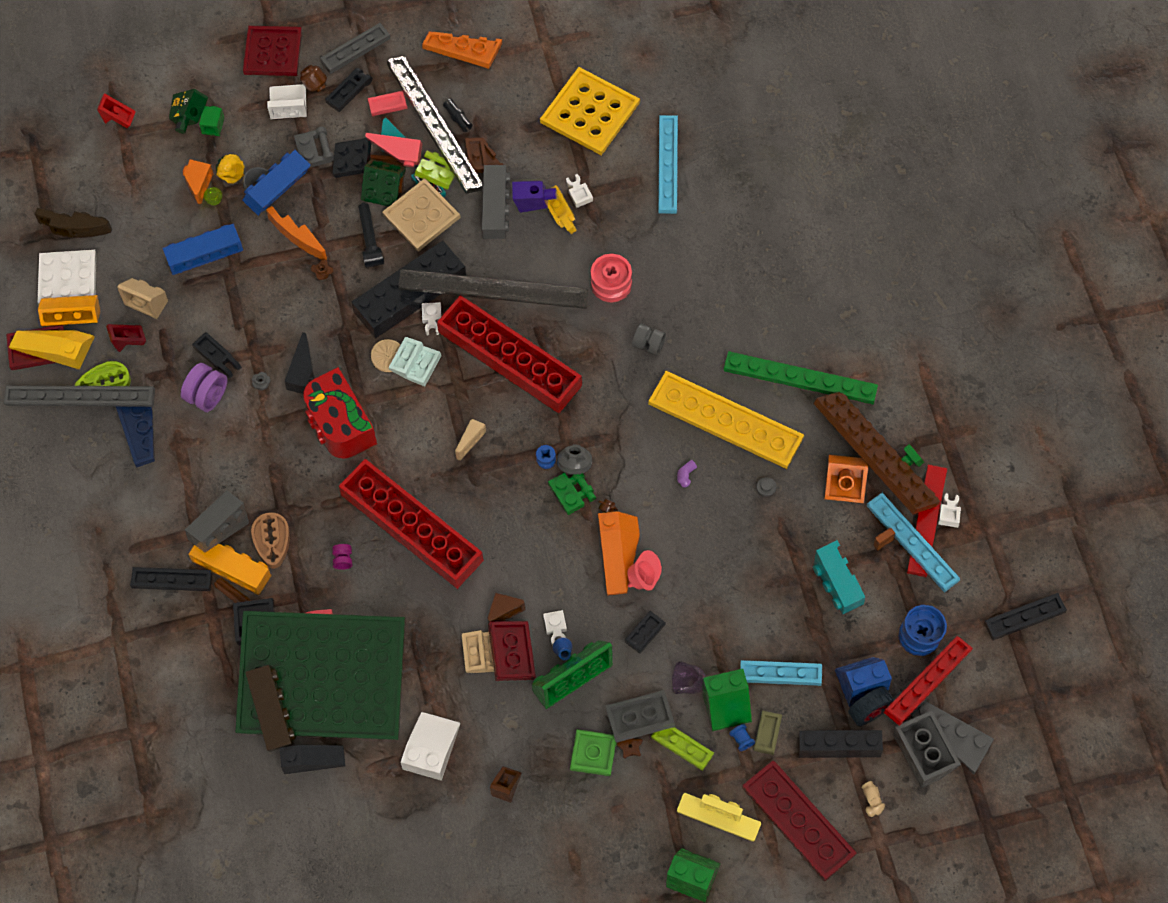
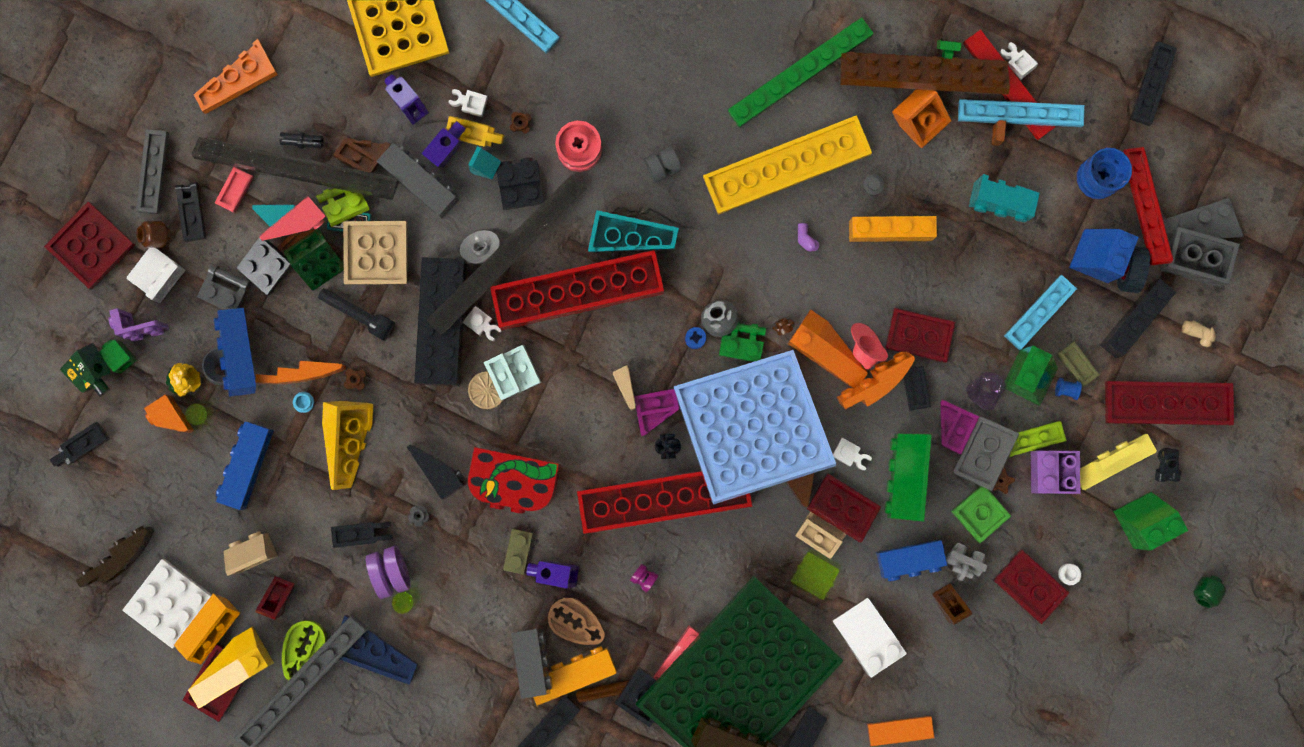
camera: 55 degrees left, 20 degrees up
(114, 110) = (29, 435): red slope -> none
(131, 145) = (80, 445): none -> black hinge
(190, 418) = (402, 602): none -> clear neon green plate
(238, 115) = (124, 326): none -> medium lavender bracket
(276, 293) = (344, 436): none -> yellow wedge
(278, 251) = (303, 402): none -> medium azure plate
(290, 463) = (518, 551): none -> olive plate
(292, 490) = (561, 575): none -> dark purple torso
(379, 824) = (900, 730): none -> orange tile
(445, 674) = (815, 575): none -> clear neon green piece
(451, 497) = (667, 446): none -> black gear
(471, 470) = (655, 408): none -> magenta wing
(483, 270) = (479, 246): none -> light grey dish
(514, 728) = (912, 560): none -> blue brick
(515, 537) = (754, 427): none -> light blue plate
(542, 226) = (483, 164): none -> teal slope
(543, 143) = (405, 98): none -> dark purple torso
(543, 768) = (965, 565): none -> light grey hips
(551, 264) = (520, 184): none -> black plate
(562, 648) = (879, 467): blue cone -> none
(570, 833) = (1031, 586): none -> dark red tile
(576, 352) = (624, 233): none -> teal wedge
(595, 227) = (524, 127): none -> reddish brown plate
(604, 853) = (1069, 574): none -> white tile
(631, 601) = (885, 378): none -> orange slope
(641, 681) = (955, 426): none -> magenta wing
(669, 775) = (1055, 472): none -> medium lavender slope
(687, 605) = (920, 335): none -> dark red tile
(745, 522) = (892, 228): none -> light orange brick
(746, 859) = (1168, 466): none -> black plate

